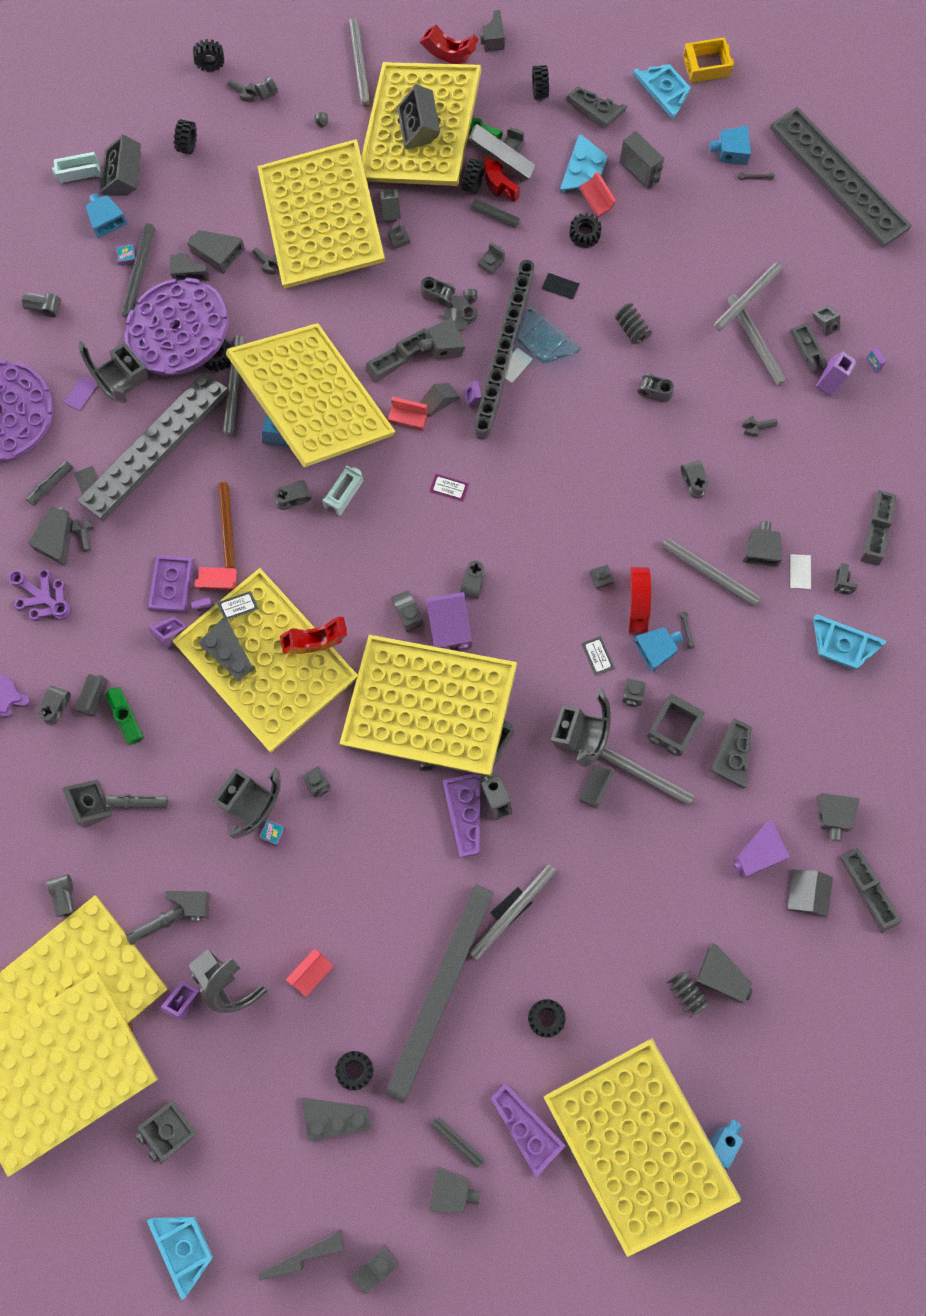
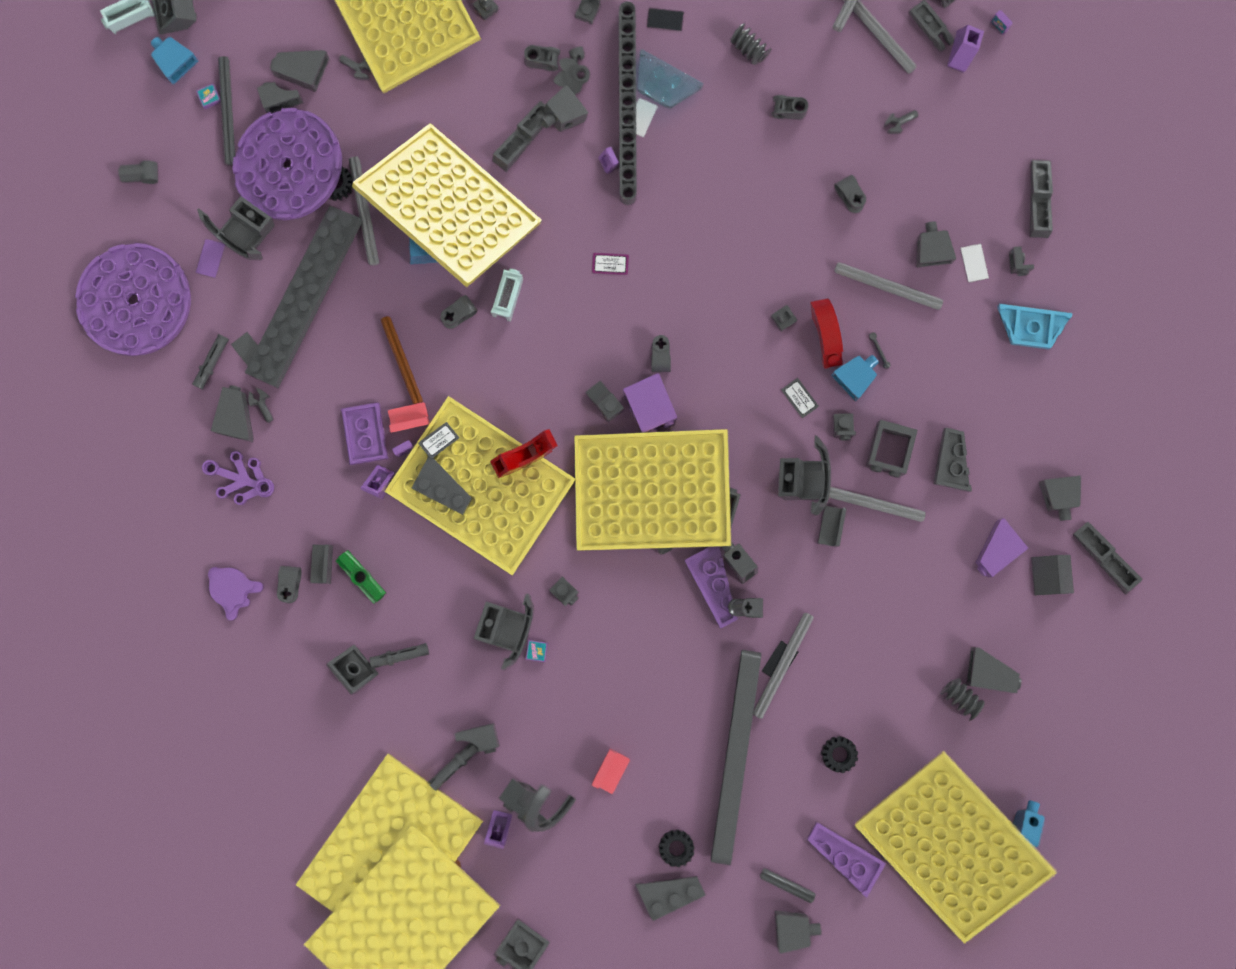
camera: 15 degrees left, 10 degrees up
(60, 889) = (354, 758): dark grey piece -> none
(408, 413) = (549, 198): coral panel -> none
(439, 397) = (574, 173): dark grey slope -> none
(491, 842) = (746, 607): none -> dark grey piece

